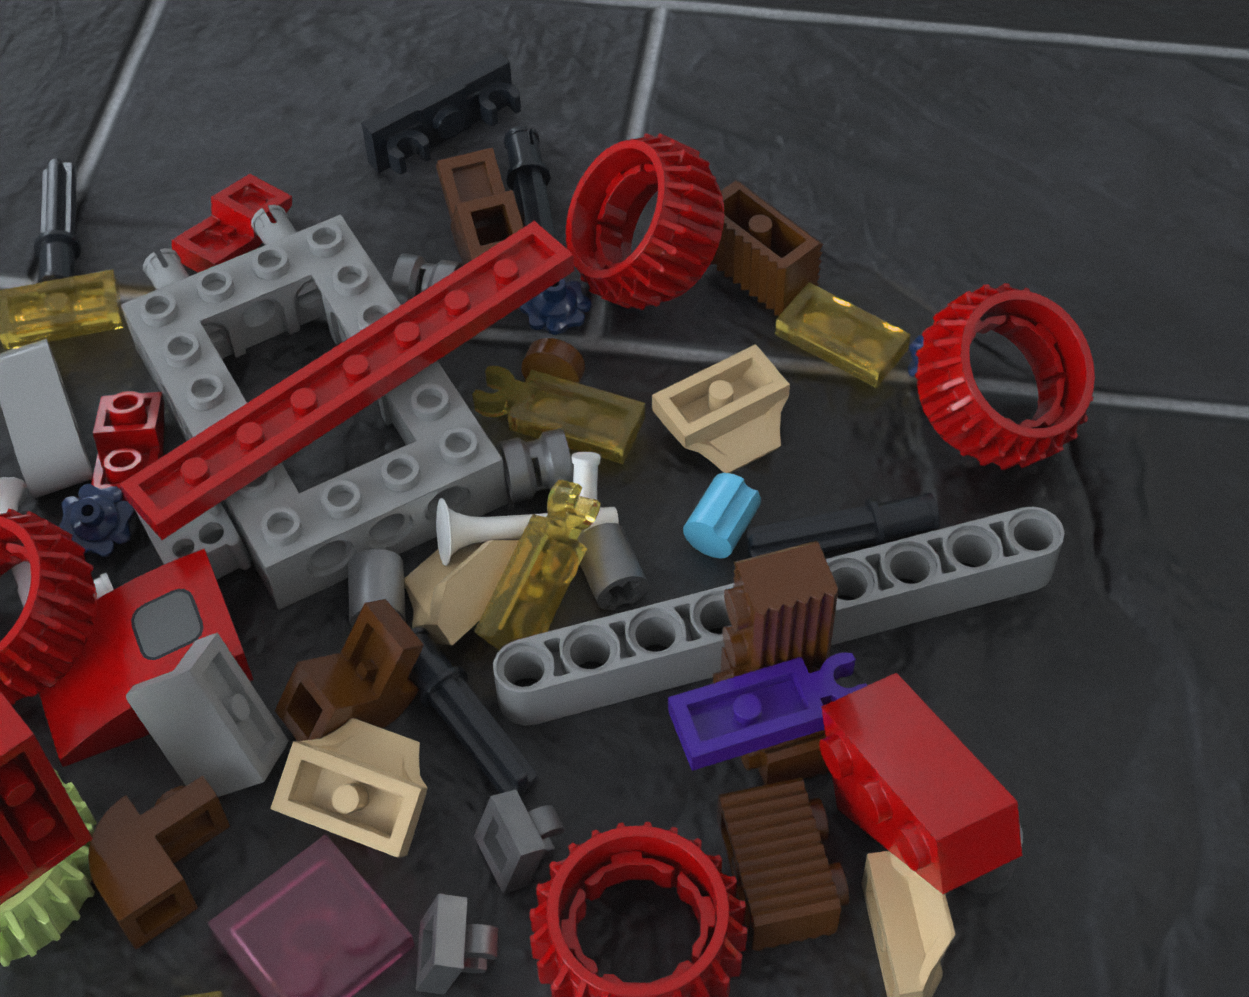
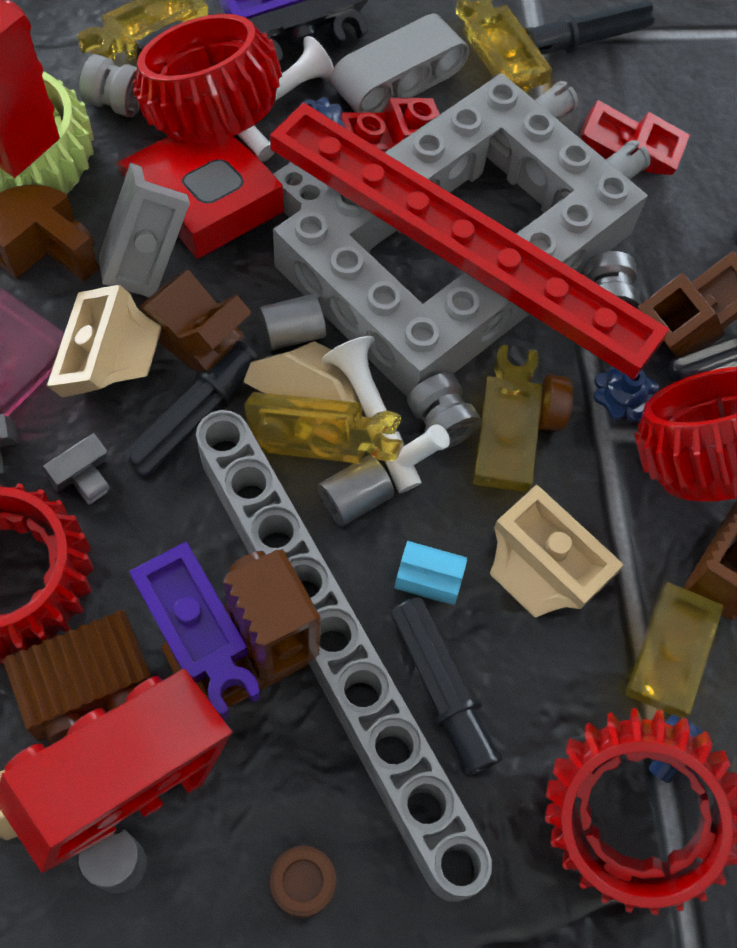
camera: 70 degrees right, 10 degrees up
(1022, 691) = (303, 881): none -> reddish brown tile

